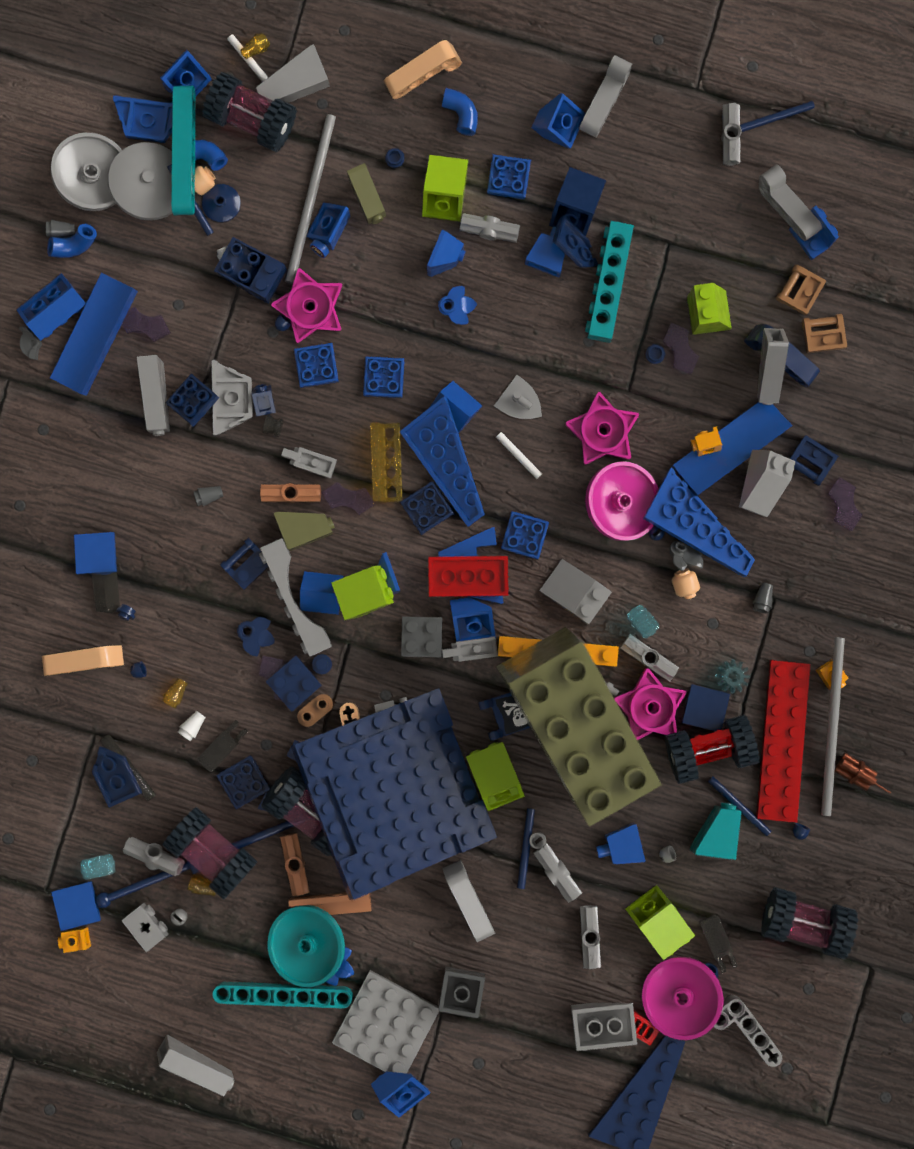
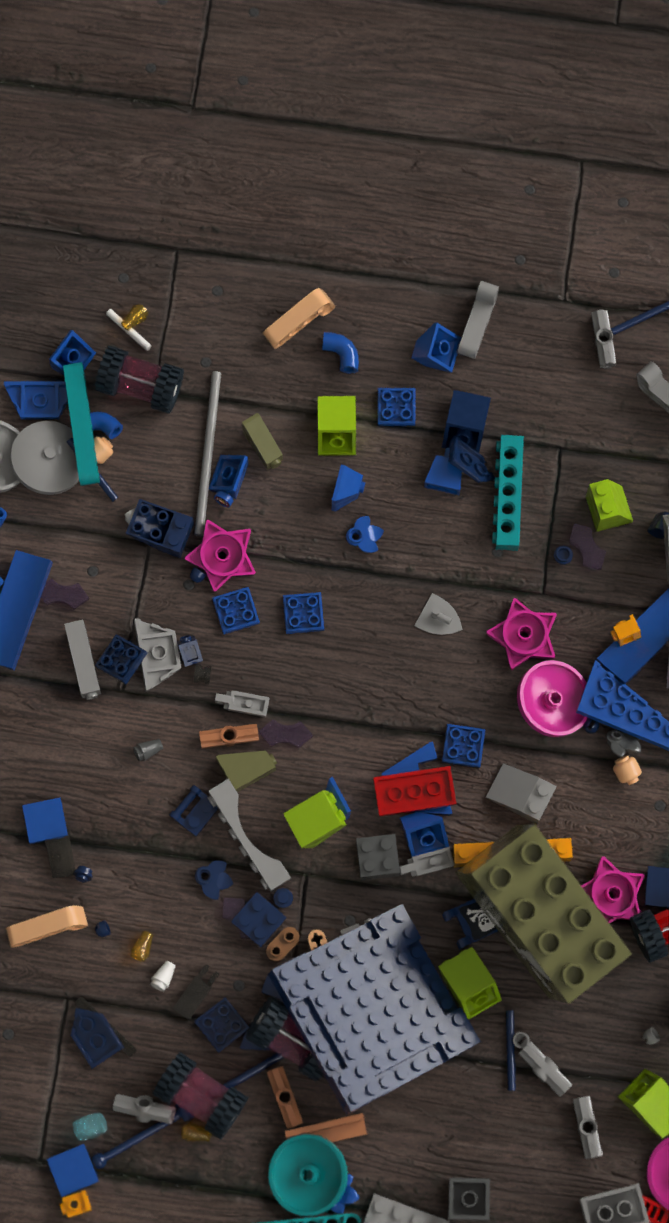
camera: 10 degrees left, 10 degrees down
(152, 935) = (134, 1178): light grey brick -> none
(181, 914) = (174, 1172): light grey hinge -> none
(225, 211) = (123, 477): dark blue dish -> none
(296, 78) = (179, 341): light grey slope -> none
(318, 593) = (271, 830): blue slope -> none
(379, 463) = (311, 694): clear yellow fence -> none
(394, 158) = (283, 404): dark blue plate -> none
(427, 508) = (363, 732): dark blue tile -> none
(440, 450) = (367, 672): blue wing -> none
(461, 404) = (376, 632): blue slope -> none
(468, 900) = (462, 1108): light grey beam -> none
(489, 227) = (385, 457): light grey piece -> none
(518, 455) = (446, 670): white bar -> none
(622, 846) = (605, 1033): blue torso -> none
(642, 621) = (591, 811): clear light blue gear -> none
(660, 664) = (591, 840): light grey piece -> none

